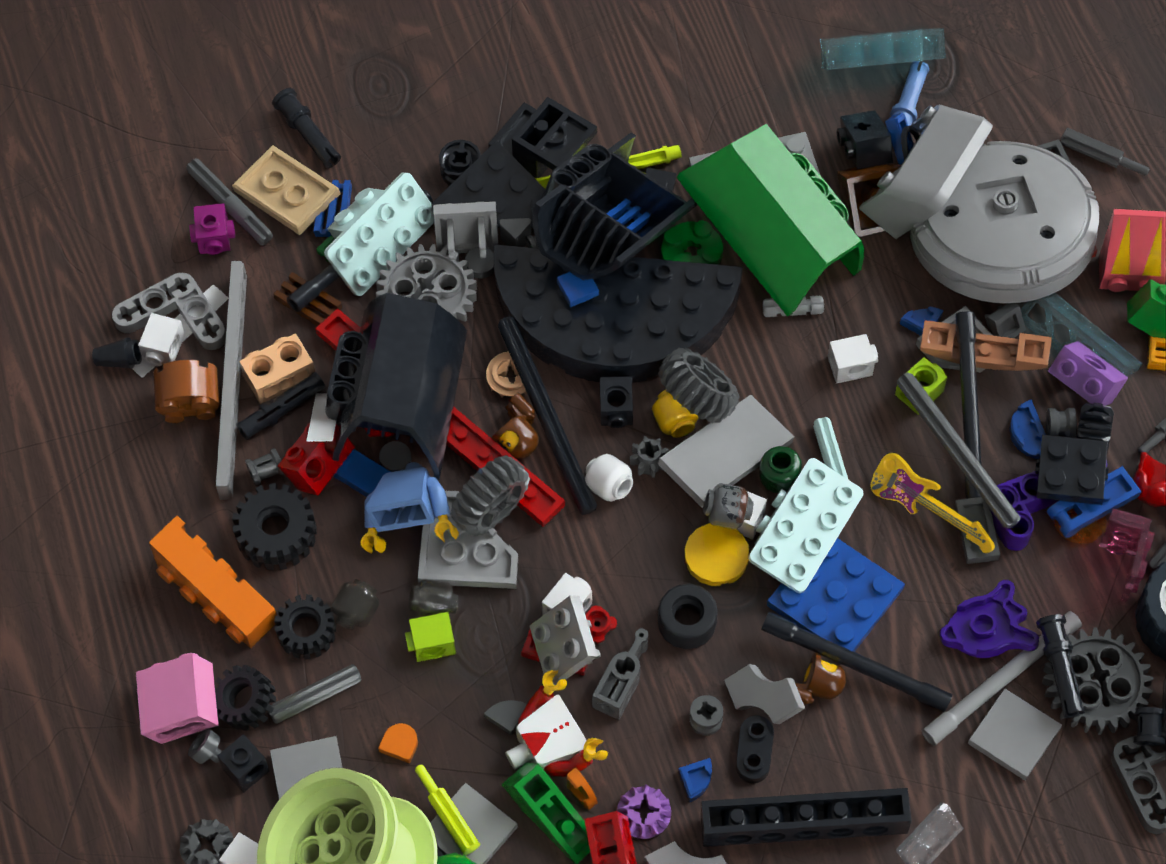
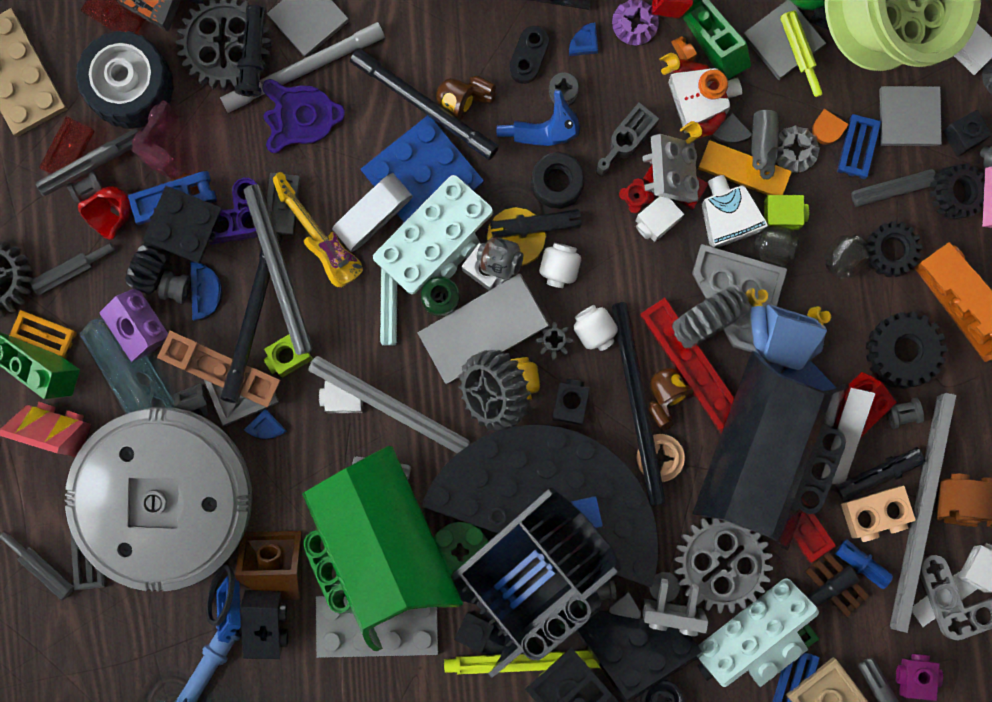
camera: 165 degrees left, 20 degrees up
(282, 321) = (864, 564): none -> blue axle
(361, 758) = (852, 170): none -> blue tile
(422, 723) = (806, 158): none -> light grey gear
(468, 700) = (765, 141): none -> dark grey piece
(484, 677) = (739, 169): none -> light orange tile
(490, 622) = (730, 214): none -> white torso
(540, 730) = (719, 78): none -> orange plate
(662, 531) = (560, 265): none -> white head
(694, 564) = (535, 224): none -> black pin
(700, 667) = (559, 129): none -> blue animal
(752, 689) = (502, 82): light grey tile -> none
(803, 352) = (388, 404): none -> light grey axle
(877, 535) = (372, 212): none -> beam
(930, 170) = (205, 558): light grey windscreen -> none

